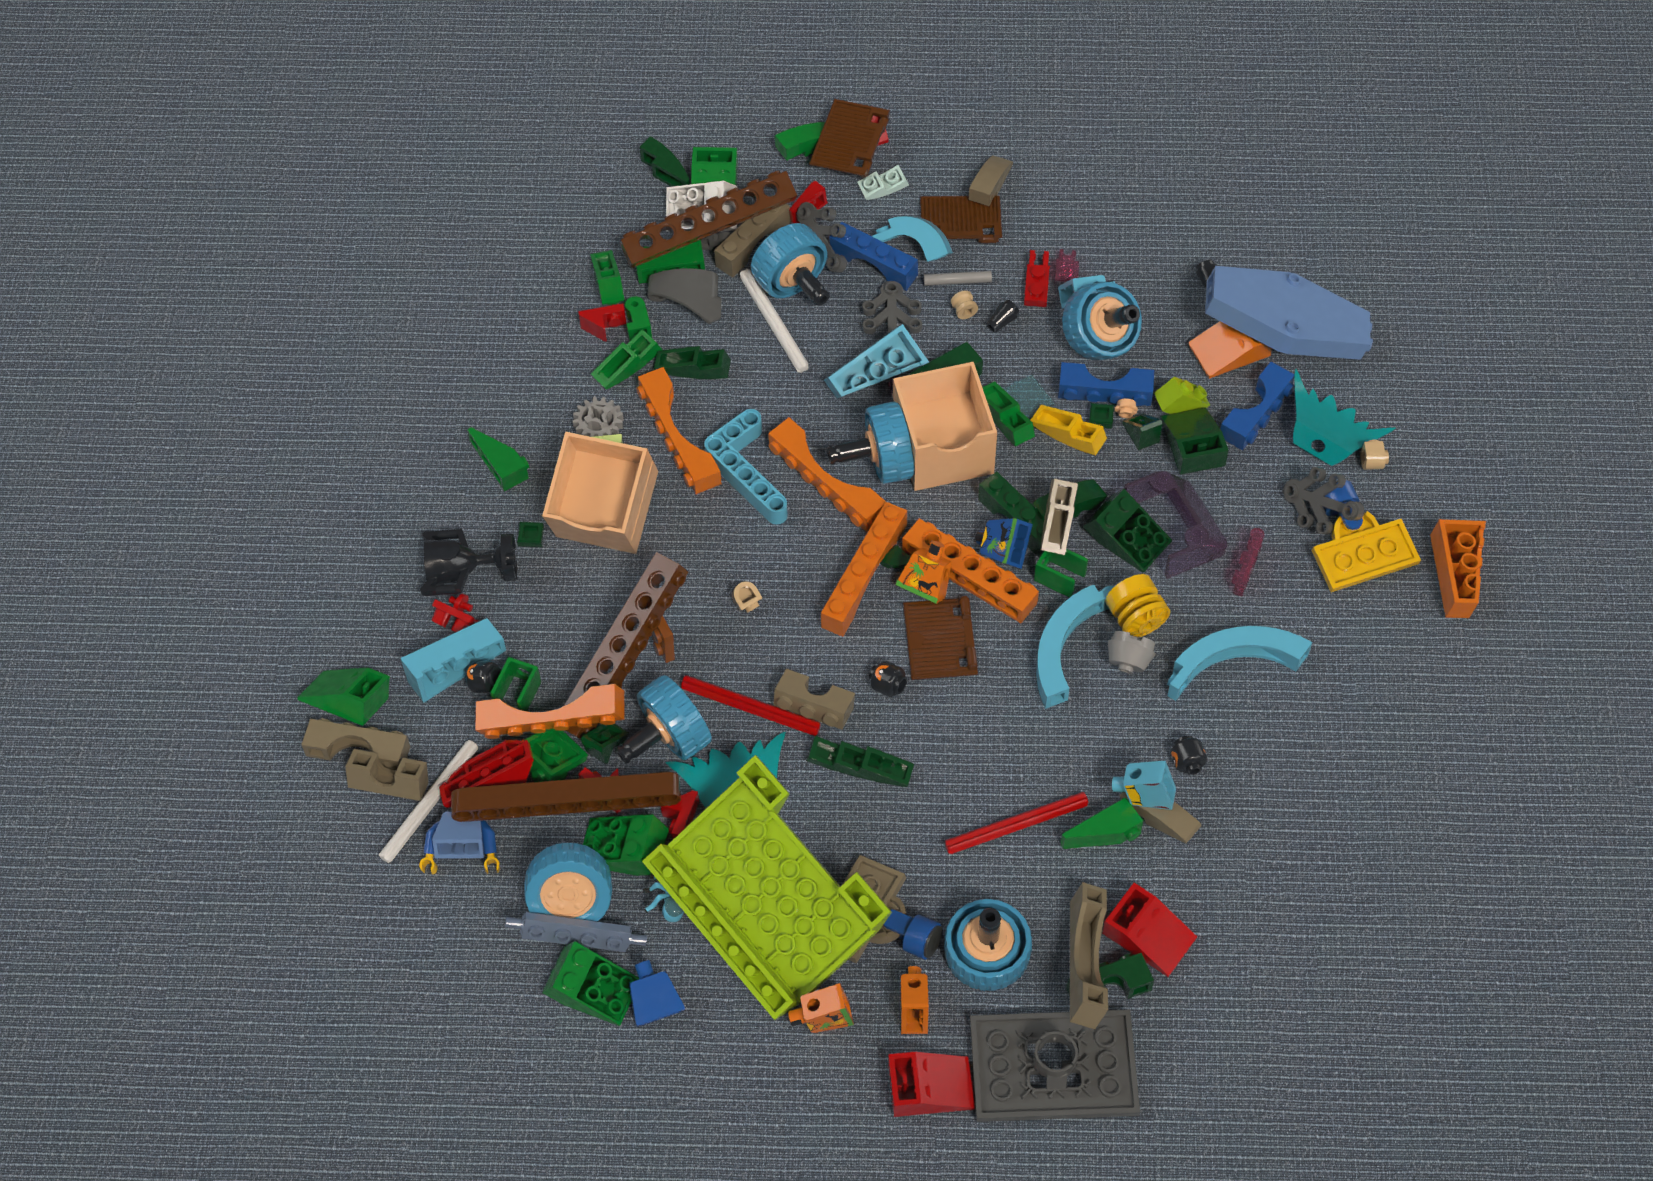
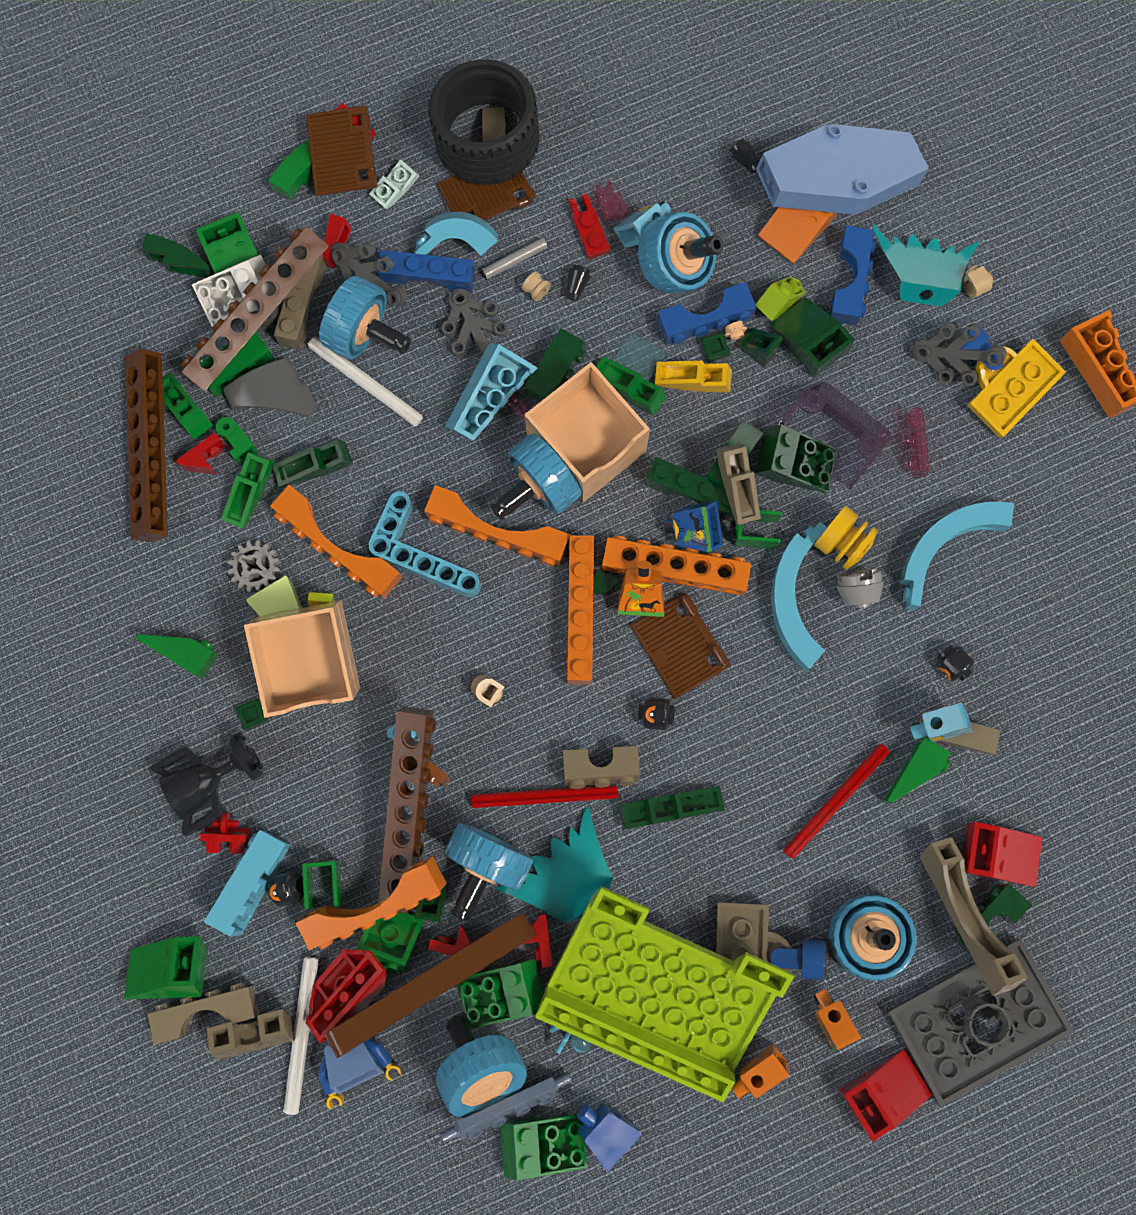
camera: 25 degrees left, 20 degrees up
(559, 293) = (146, 446): none -> reddish brown brick
(988, 130) = (479, 84): none -> black tyre

